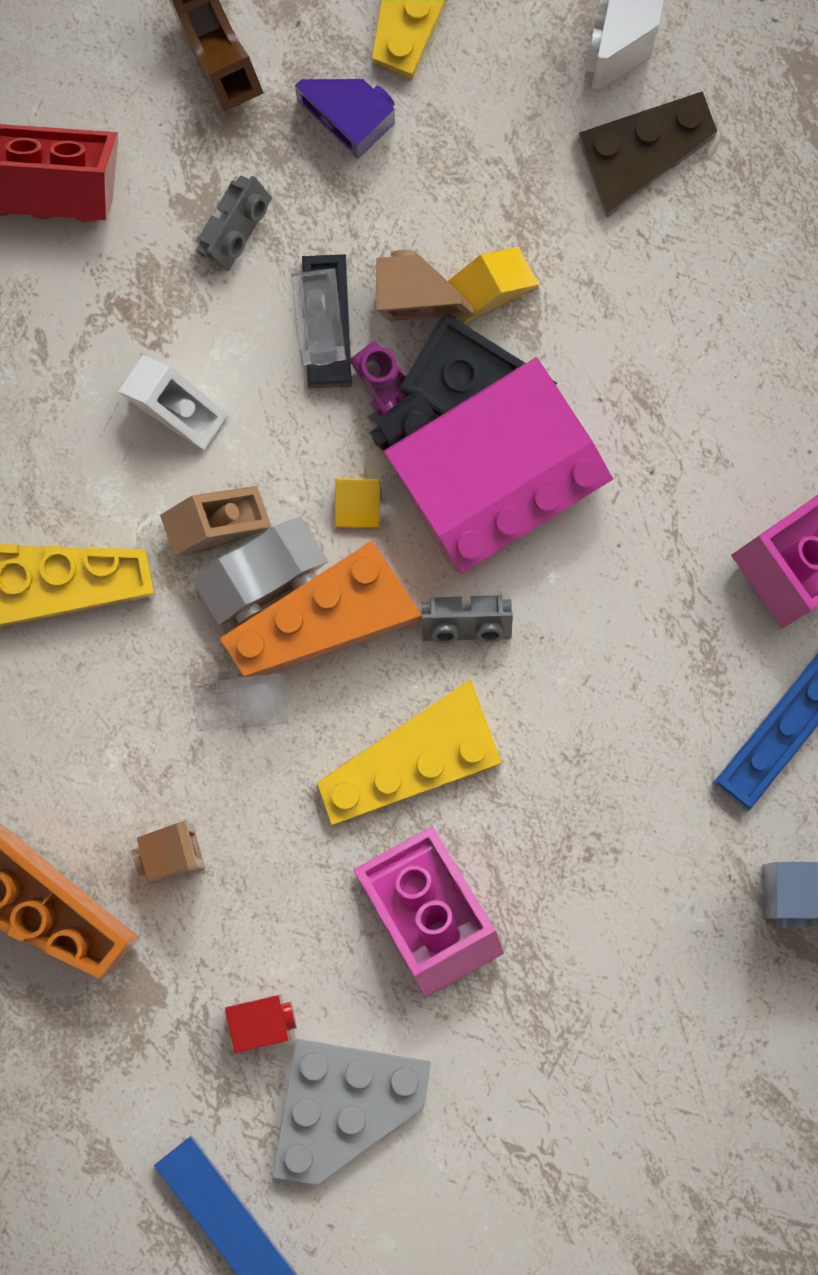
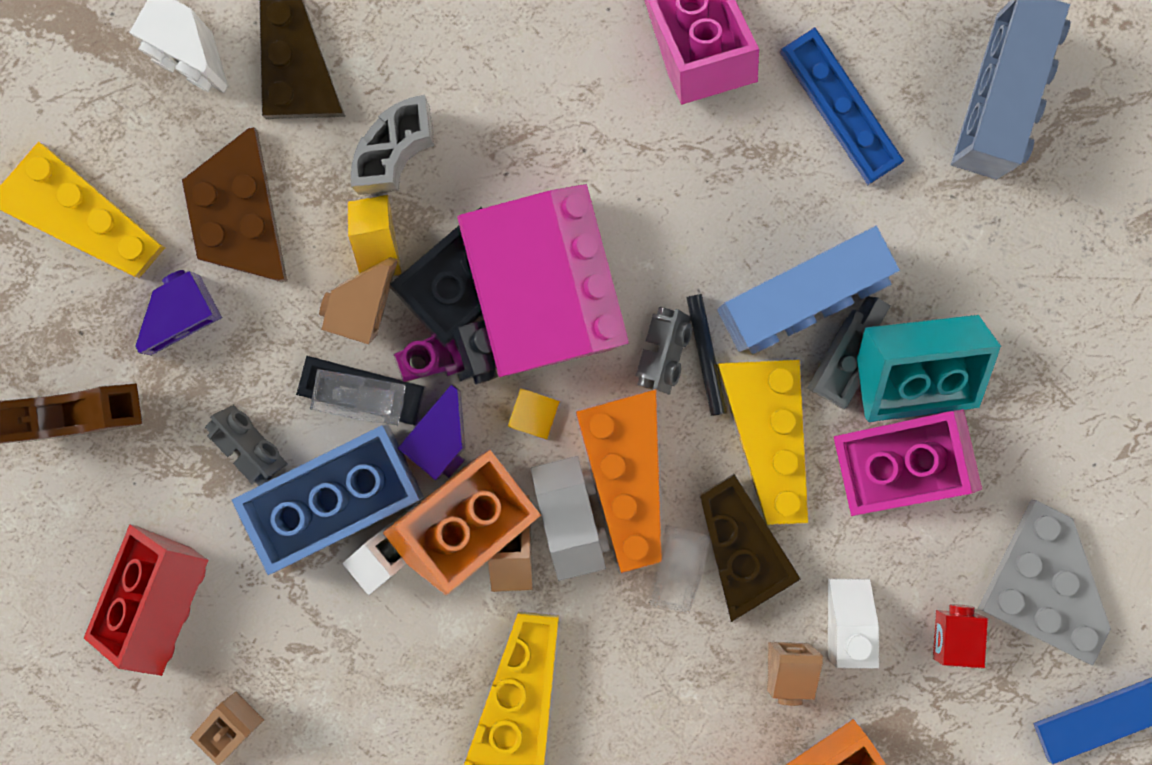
camera: 75 degrees left, 5 degrees up
(205, 320) = (327, 499): none -> medium blue brick
(222, 459) = (462, 523): none -> orange slope
(240, 902) = (852, 624): none -> white slope
(285, 766) = (744, 548): none -> dark brown wing
(304, 413) = (438, 437): none -> dark purple slope
(472, 136) = (234, 210): none -> reddish brown wing
(476, 665) = (706, 355): none -> black bar
(524, 814) = (838, 372): none -> dark grey hinge
(534, 894) = (925, 367): none -> teal slope
(574, 741) = (813, 286): none -> medium blue brick
(590, 269) = (390, 144): none -> light grey brick

